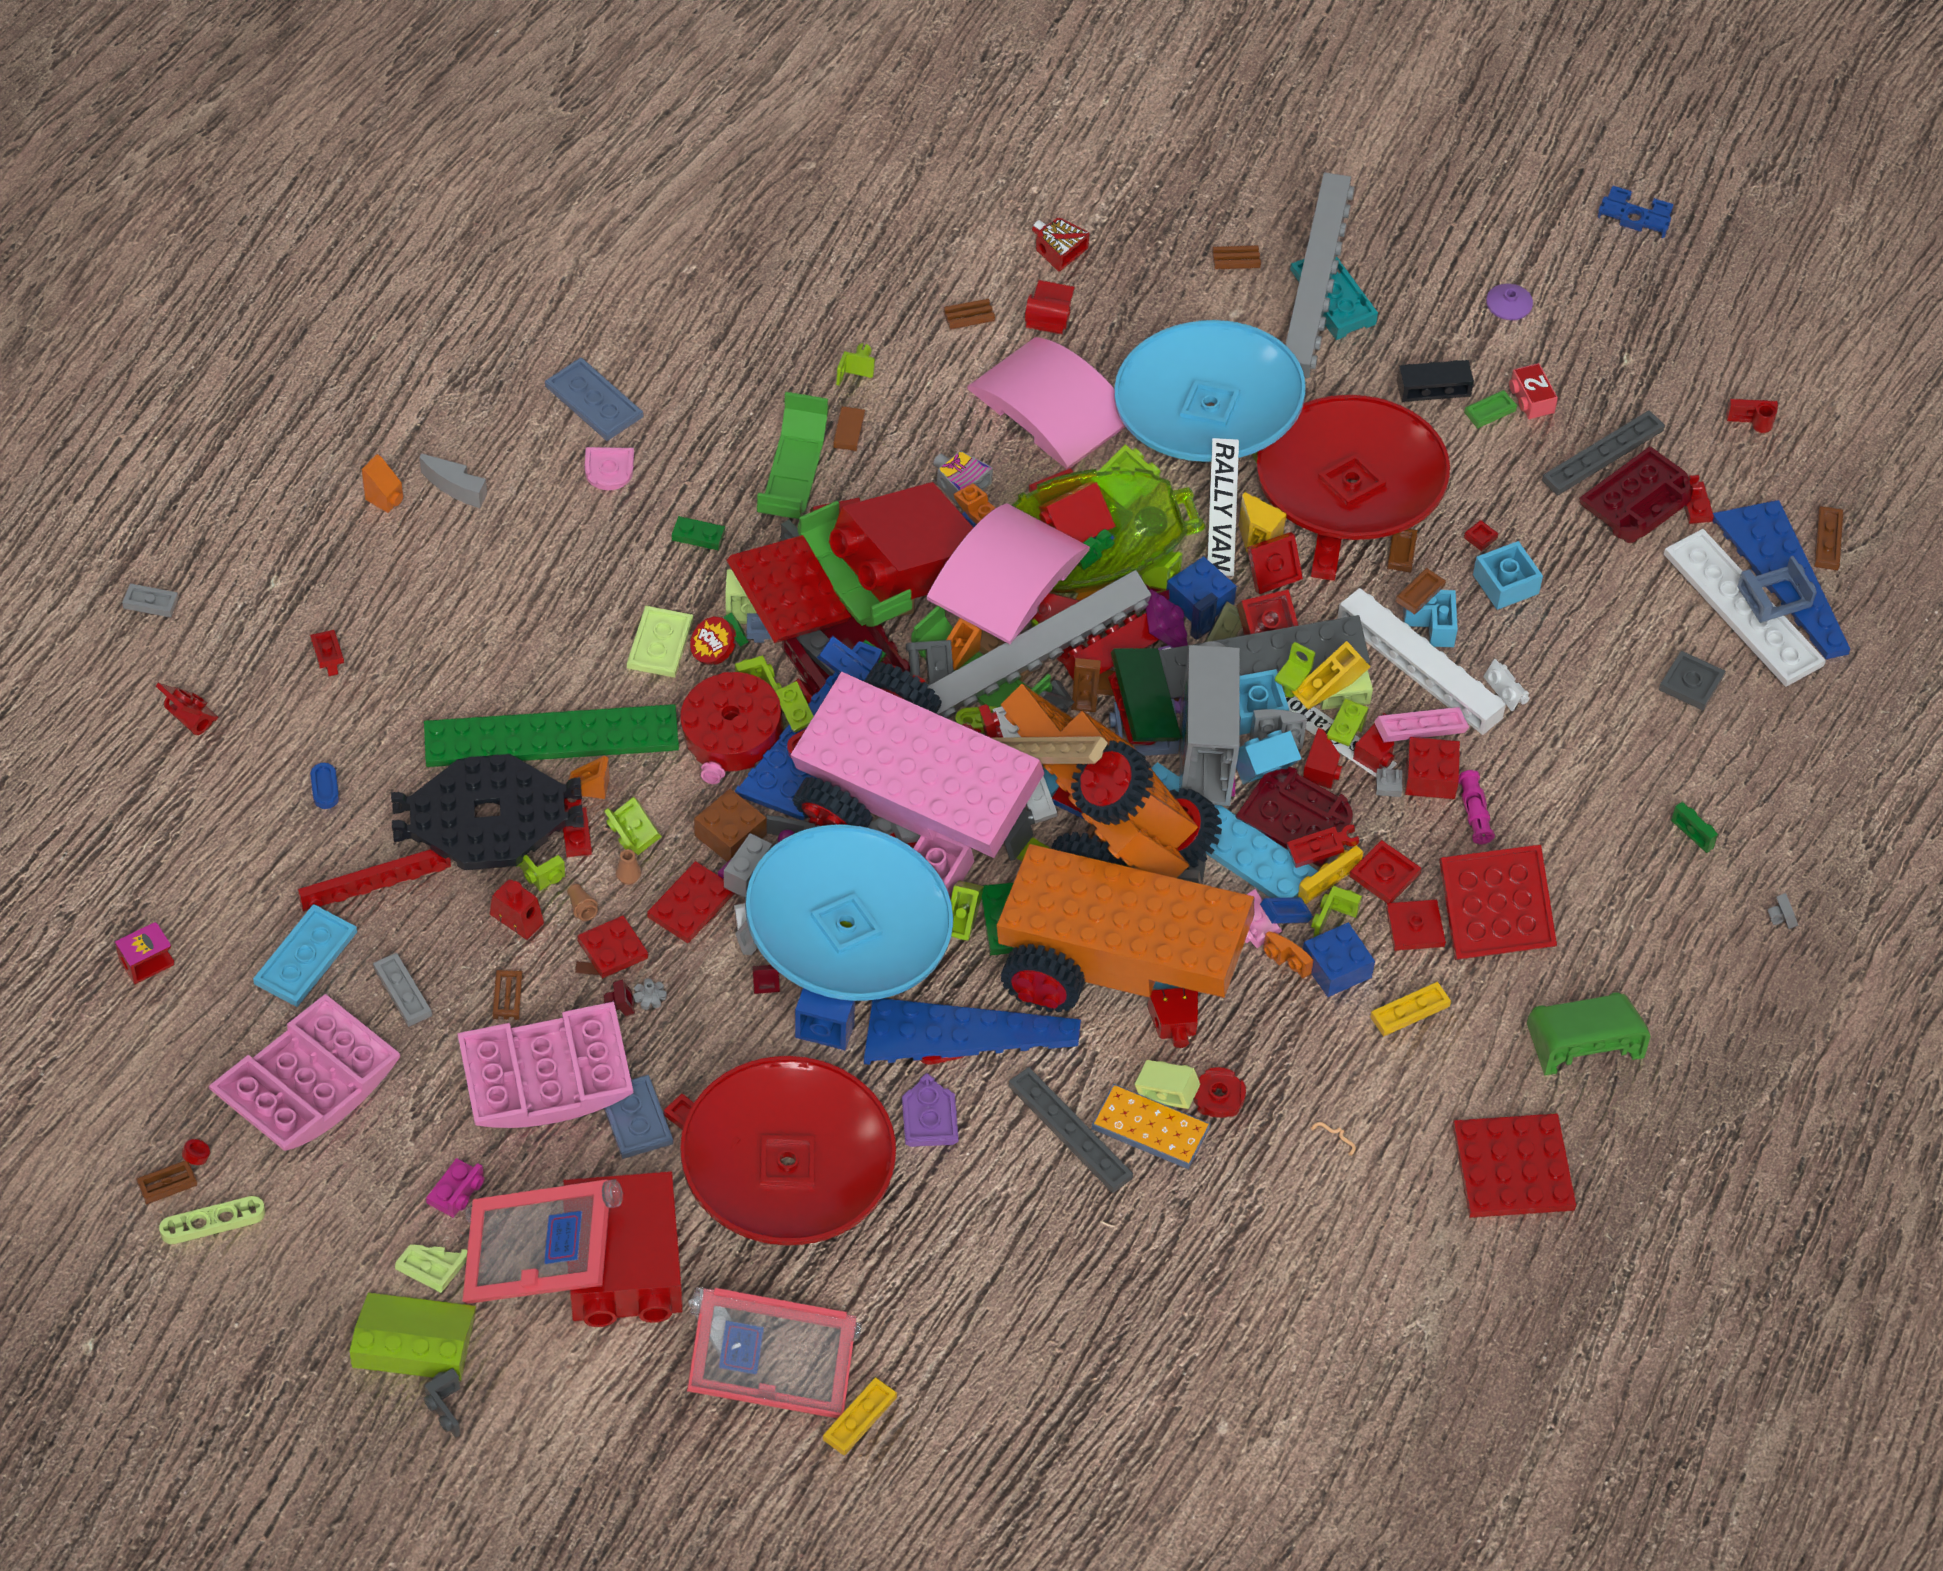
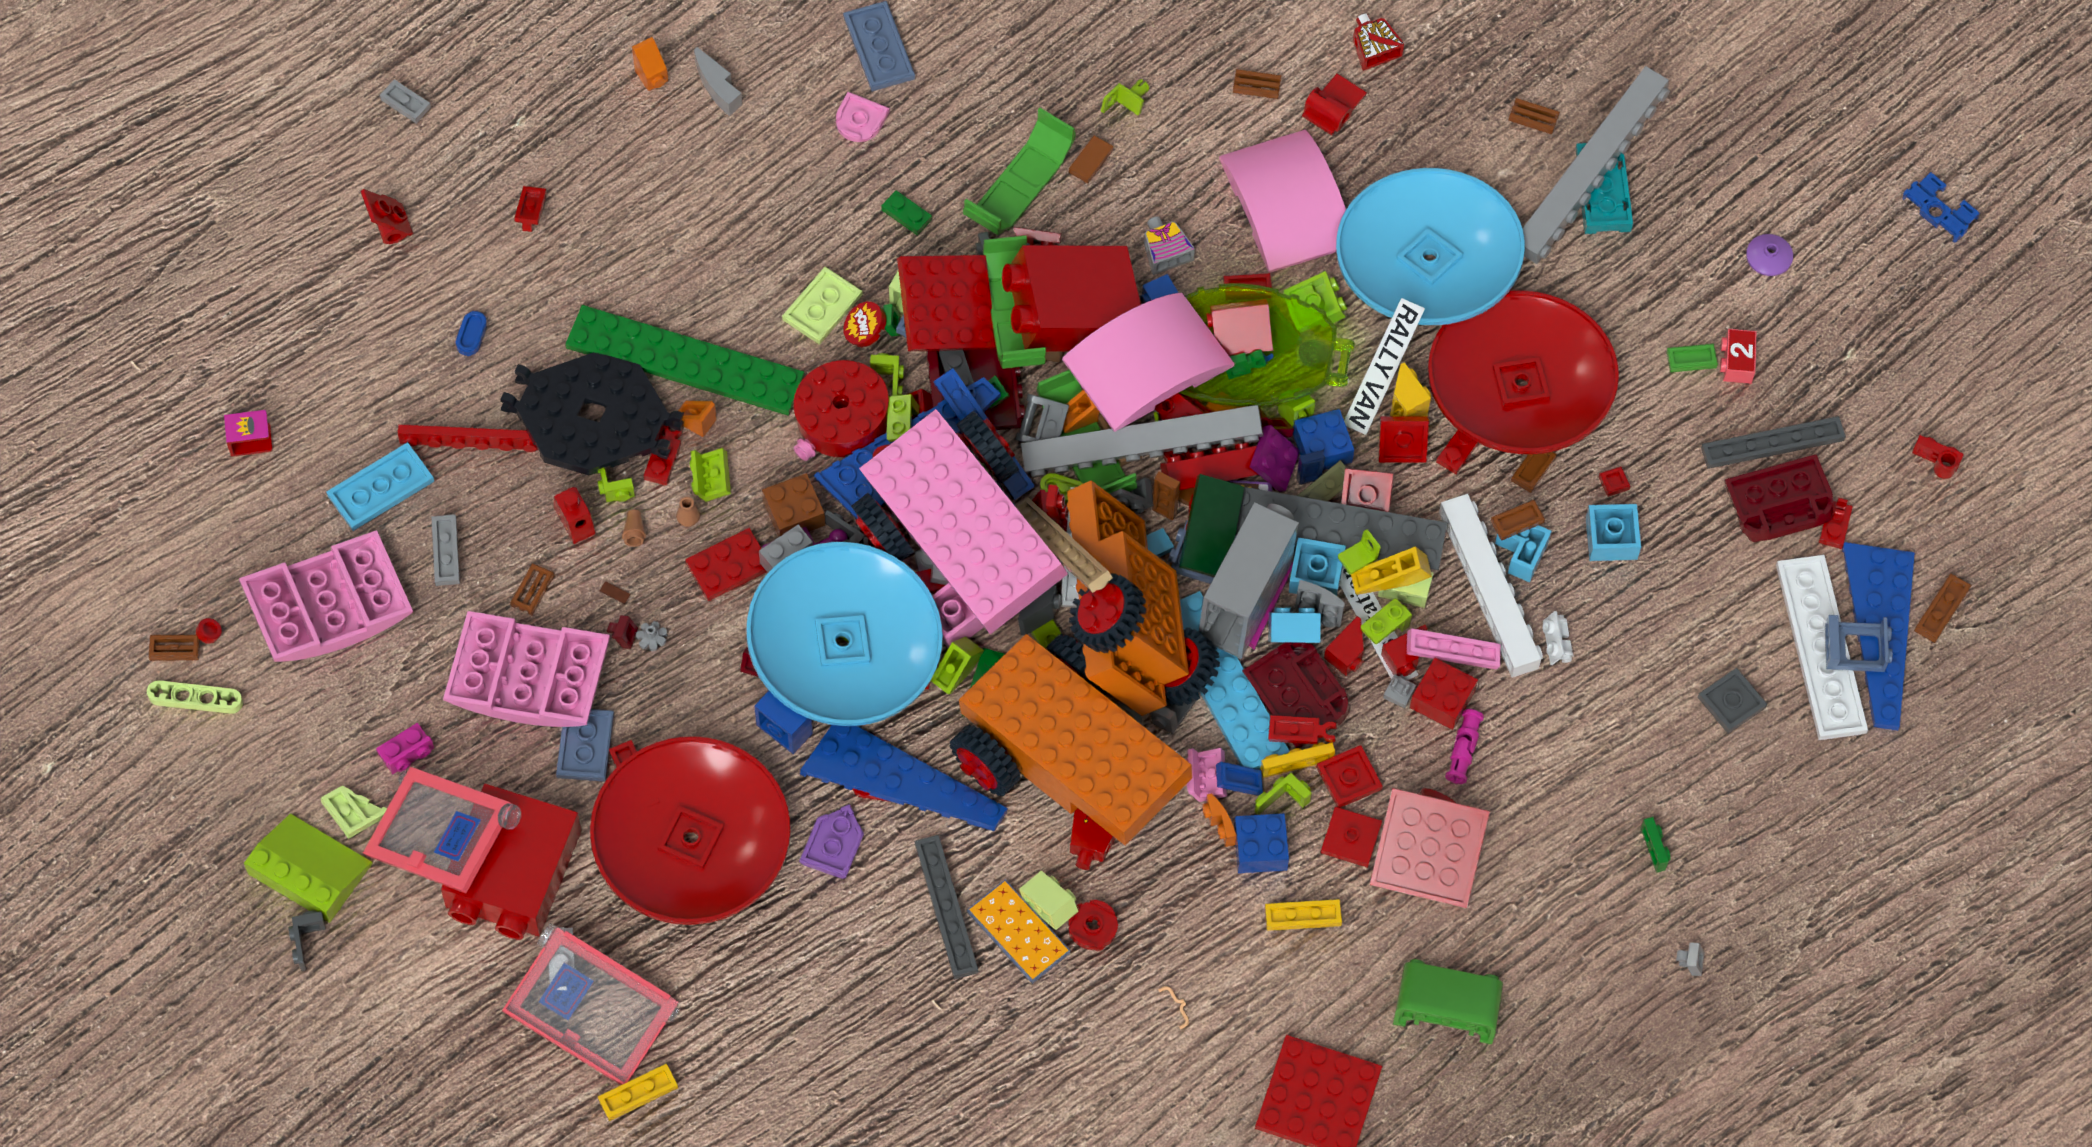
camera: 25 degrees right, 10 degrees up
(612, 946) = (641, 580): red plate -> none
(974, 502) = (1158, 278): orange slope -> none
(1435, 380) = (1652, 311): black brick -> none

